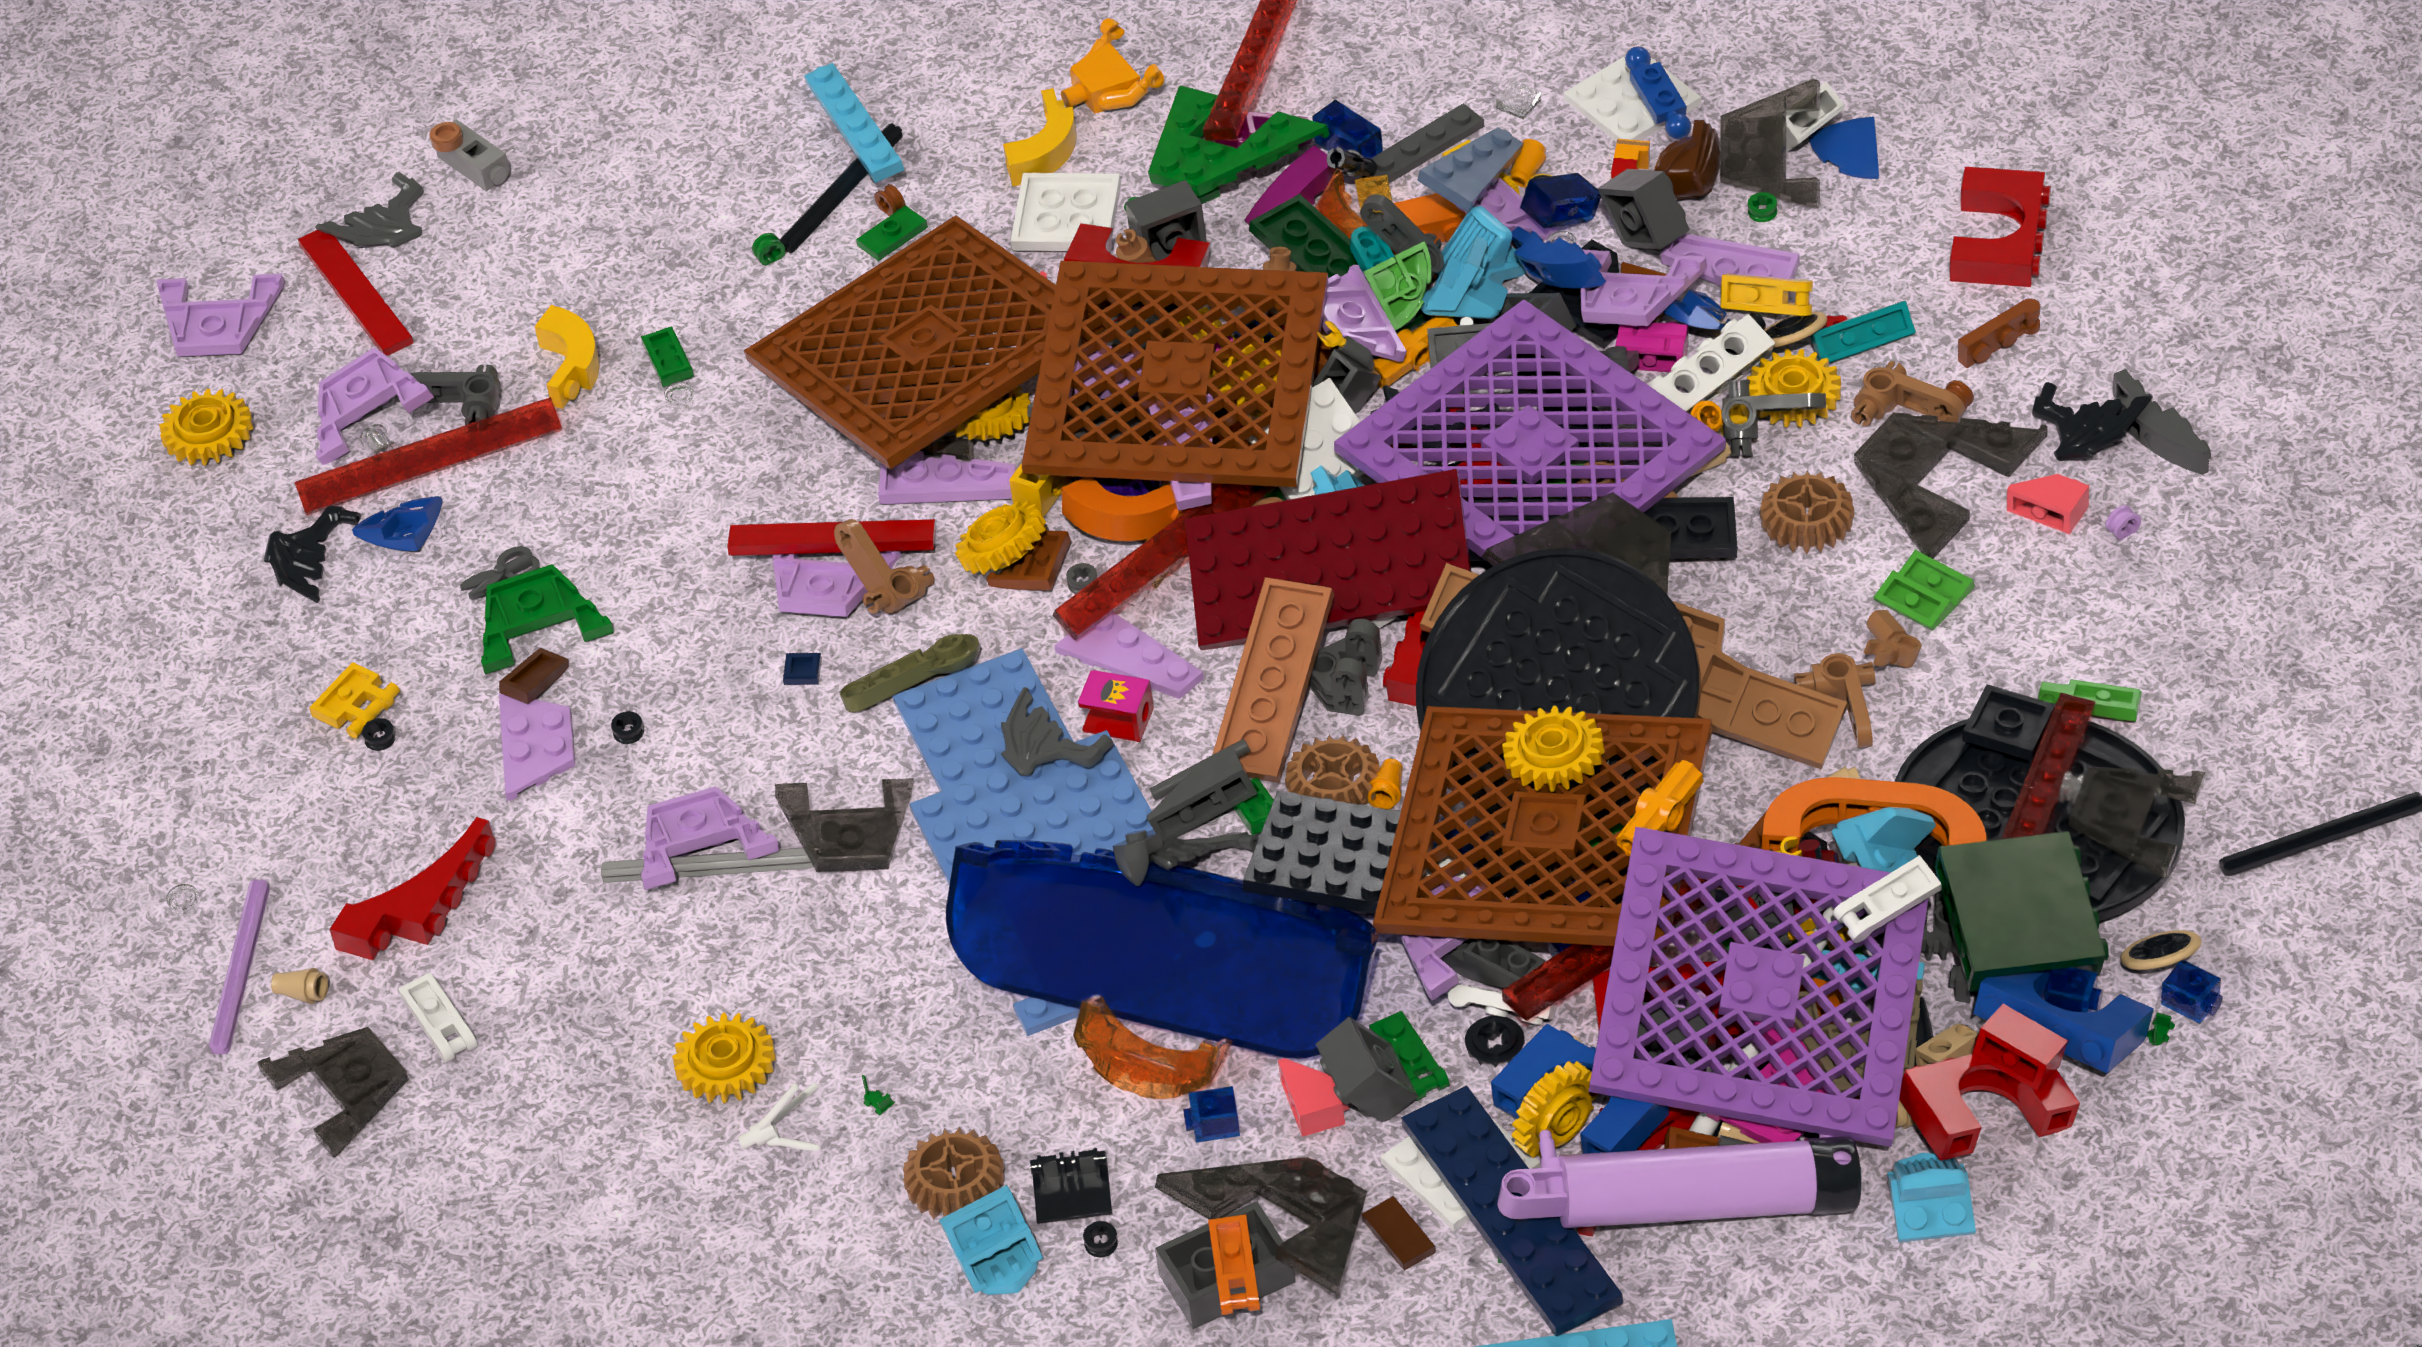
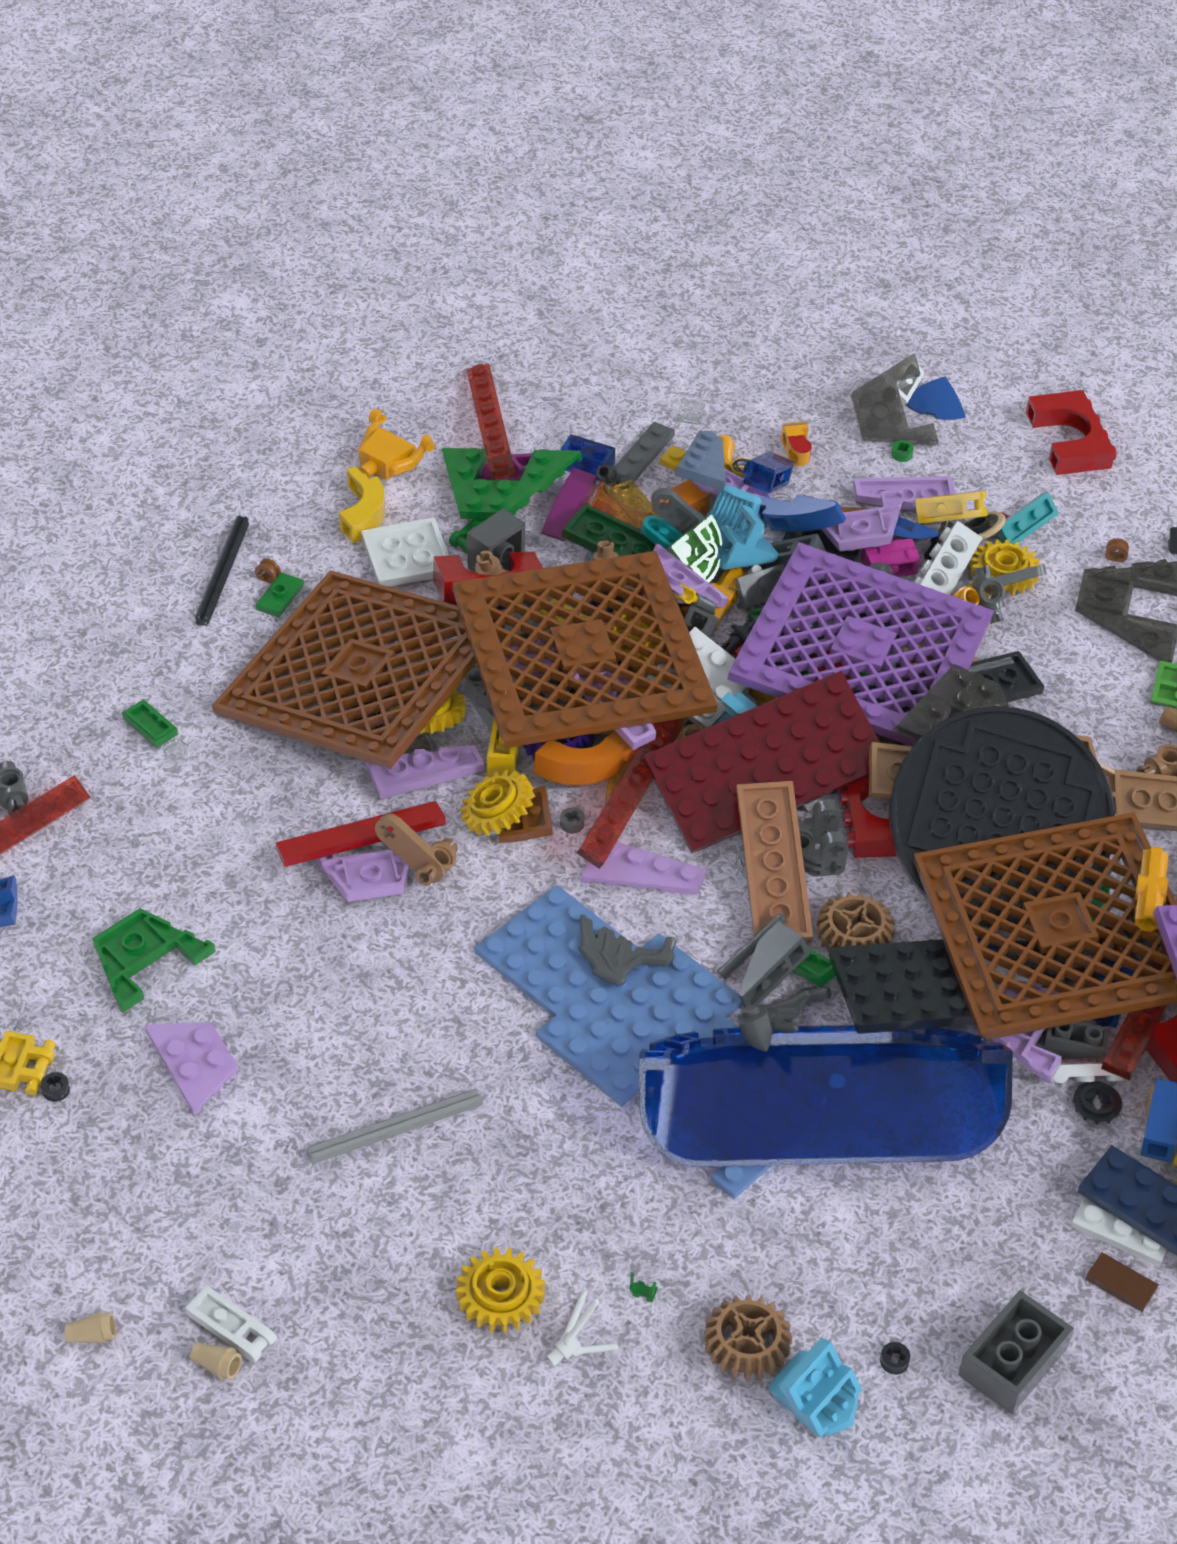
camera: 30 degrees left, 0 degrees up
(239, 966) = (26, 1329): lavender axle -> none
(353, 1071) = (180, 1397): clear smoke wing -> none
(409, 1049) = (219, 1360): none -> tan cone
(417, 906) = (163, 1231): red arch -> none
(501, 570) = (96, 924): dark grey piece -> none
(533, 675) = (168, 1004): reddish brown tile -> none
(571, 337) = (70, 727): yellow arch -> none
(625, 718) = (262, 1033): black bush -> none
(695, 823) = (370, 1093): lavender wing -> none
(768, 248) = (190, 625): green bush -> none
(802, 669) = (387, 943): dark blue tile -> none
(847, 837) = (499, 1073): clear smoke wing -> none
(854, 122) = (211, 520): medium azure plate -> none
(946, 656) = (496, 907): olive beam -> none
(1071, 1186) = (846, 1318): black hinge -> none
(1116, 705) = (660, 911): piece -> none
(1138, 1064) = (848, 1199): clear orange windscreen -> none
(1212, 1114) = (926, 1224): clear blue brick -> none
(1233, 1263) = (1042, 1351): orange plate -> none
(1296, 1185) = (1048, 1271): clear smoke wing -> none
(1311, 1097) = (991, 1187): coral slope -> none
(1365, 1070) = (1024, 1149): dark grey brick -> none
(1387, 784) = (900, 922): light orange cone -> none
(1412, 1053) = (1043, 1134): green plate -> none
(1553, 748) = (1040, 862): yellow gear -> none
(1616, 107) = (767, 396): white plate -> none
(1644, 208) = (836, 465): dark grey brick -> none
(1658, 92) = (790, 388): blue plate -> none
(1692, 162) = (843, 431): reddish brown hair -> none
(1828, 513) = (1068, 653): medium nougat gear -> none
(1891, 387) = (1070, 553): medium nougat piece -> none
(1999, 332) = (1118, 501): dark orange plate -> none

